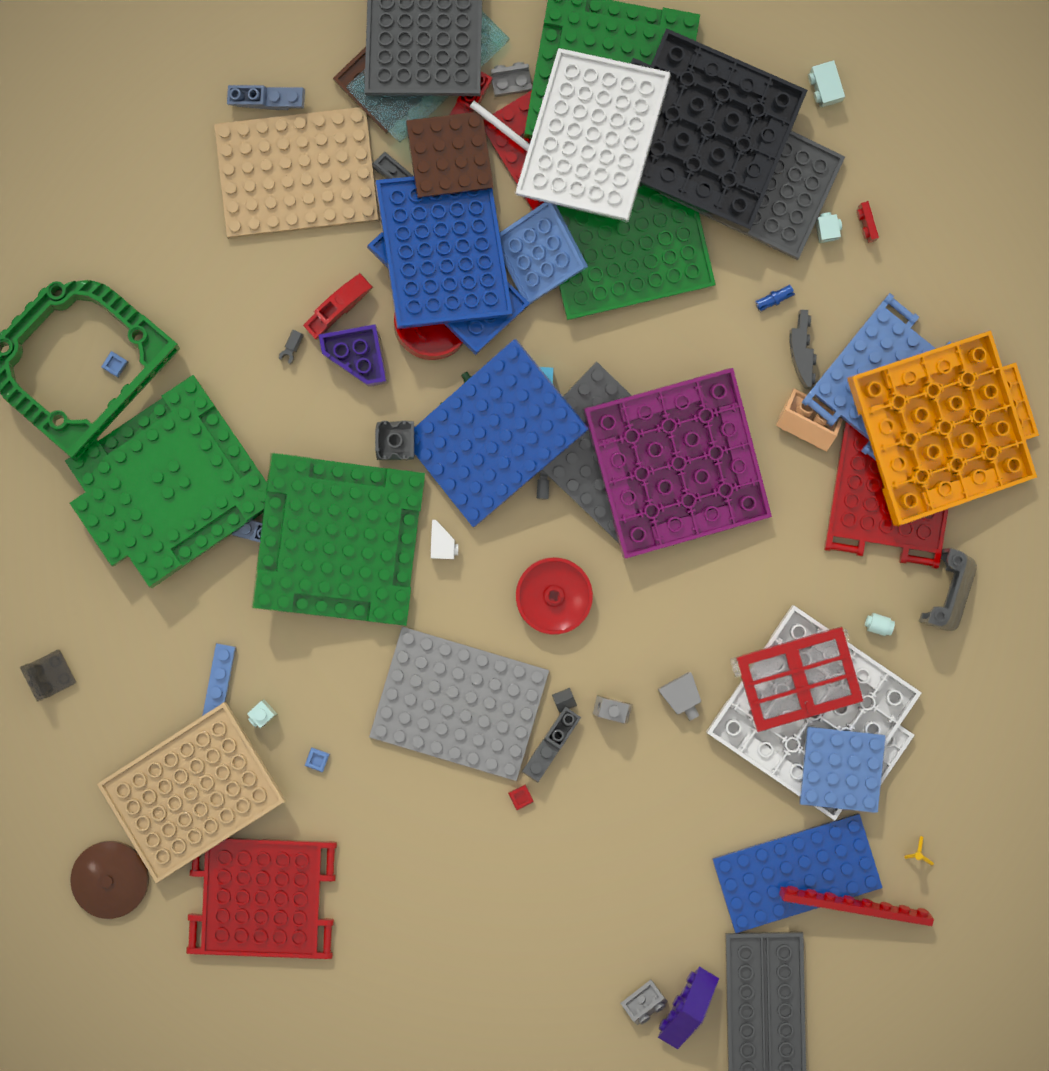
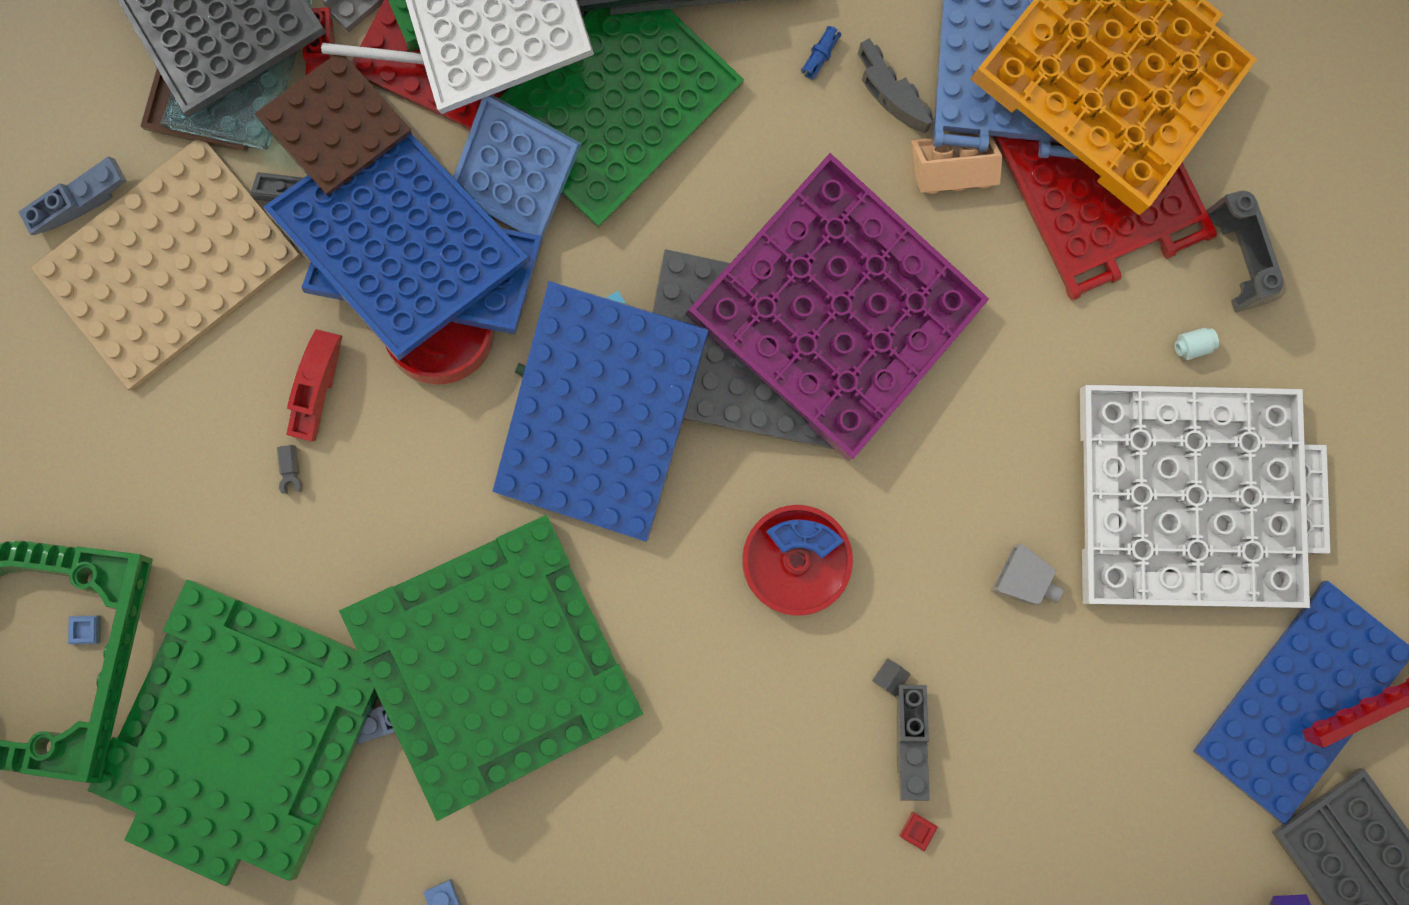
camera: 40 degrees left, 5 degrees down
(357, 353) = (371, 425): dark purple brick -> none
(395, 440) = (484, 499): dark grey slope -> none
(442, 543) = (622, 585): white slope -> none
(459, 703) = (768, 767): light grey plate -> none
(543, 486) = (697, 439): dark grey bar -> none
(567, 584) = (805, 535): none -> blue tile
(612, 709) = (956, 651): light grey torso -> none
(798, 678) = (1151, 467): door -> none
(842, 769) = (1277, 541): medium blue plate -> none

